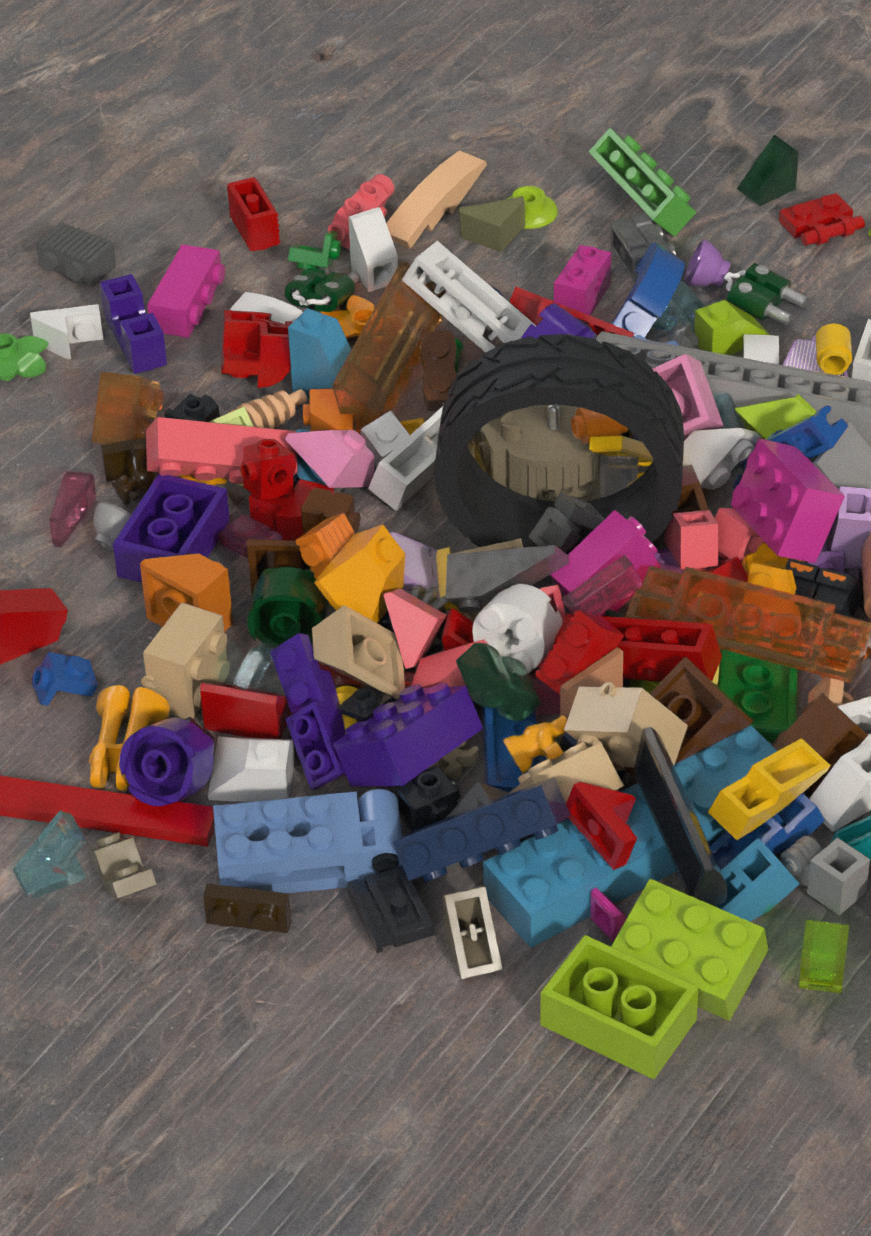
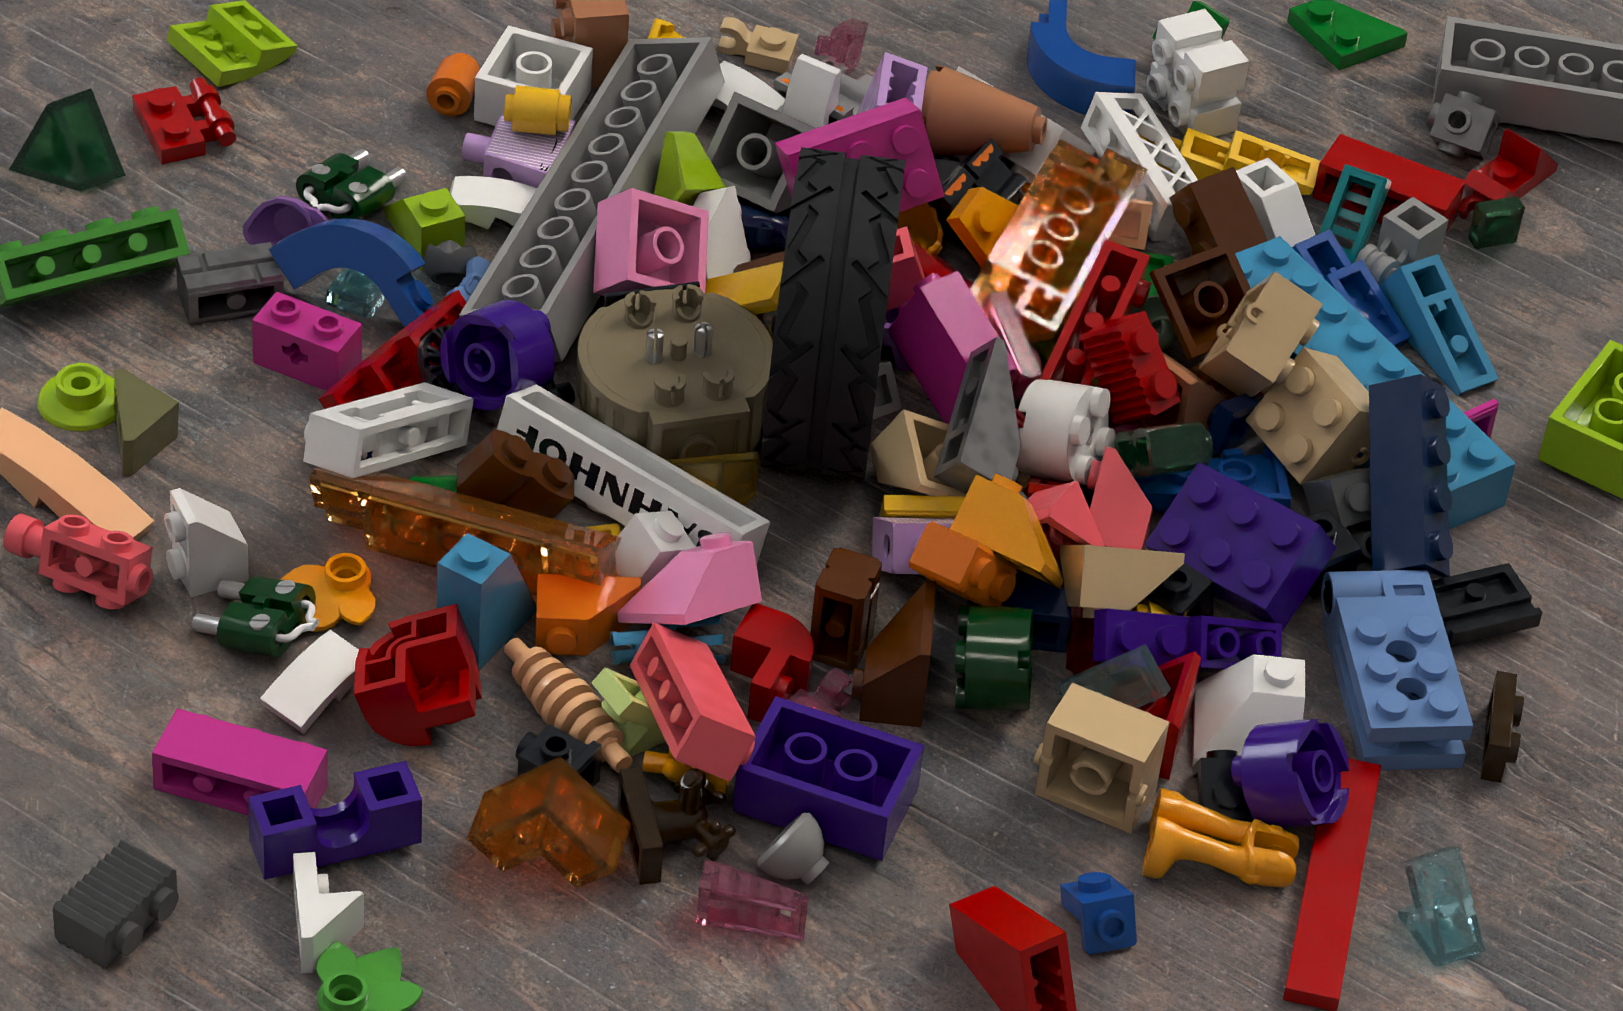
camera: 95 degrees left, 0 degrees up
(120, 866) = (1467, 827): dark tan slope -> none
(185, 580) = (980, 750): orange slope -> none
(253, 214) = (73, 675): red brick -> none
(268, 469) = (749, 644): red brick -> none
(311, 257) = (178, 612): green bracket -> none
(471, 932) = (1514, 535): dark tan slope -> none
(535, 741) = (1250, 436): light orange piece -> none
(593, 424) = (730, 293): orange brick -> none
(602, 820) = (1431, 358): red slope -> none
(677, 821) = (1410, 304): black slope -> none
(695, 945) = (1532, 356): lime brick -> none
(767, 788) = (1332, 248): yellow slope -> none
(812, 434) = (752, 146): blue hinge -> none
(823, 956) = (1518, 274): clear neon green brick -> none

